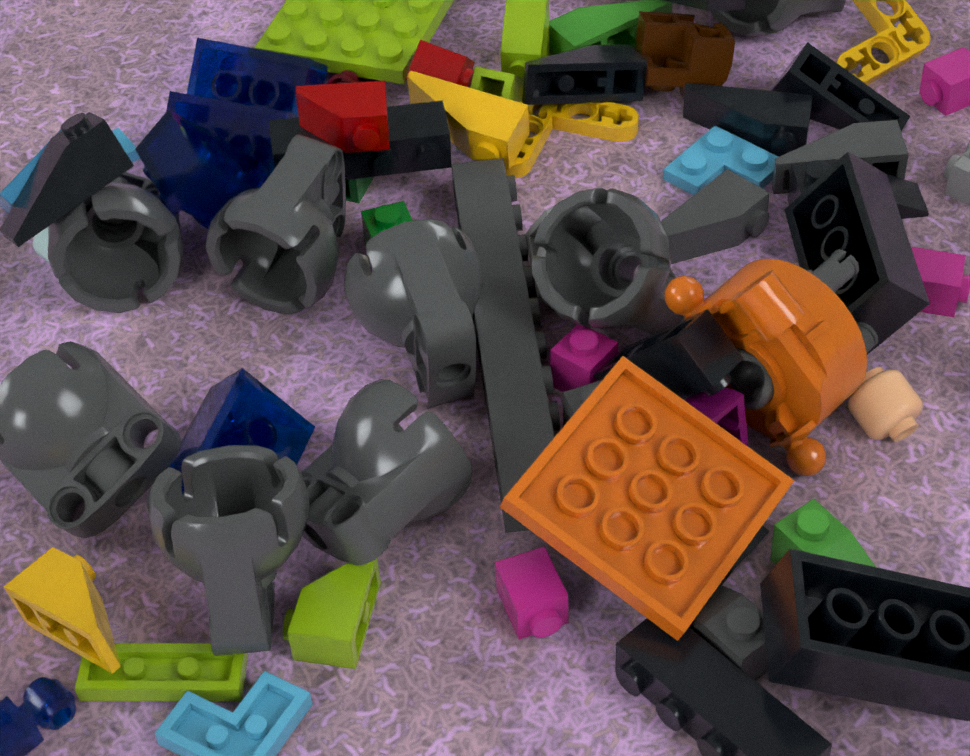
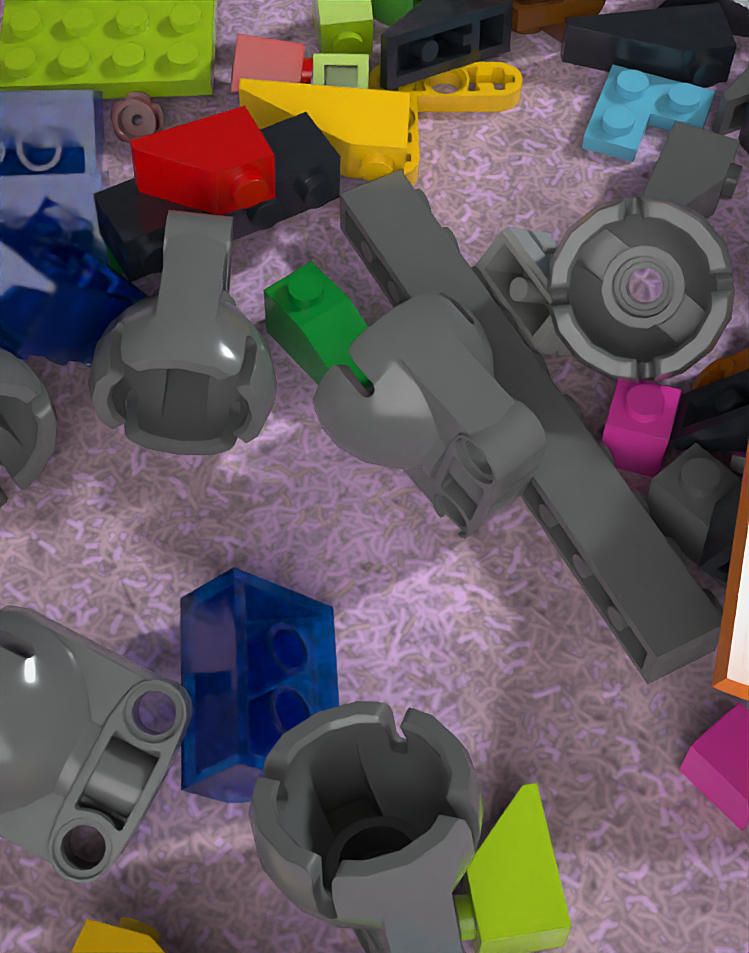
camera: 25 degrees left, 10 degrees up
(381, 475) = (492, 672): dark grey piece -> none

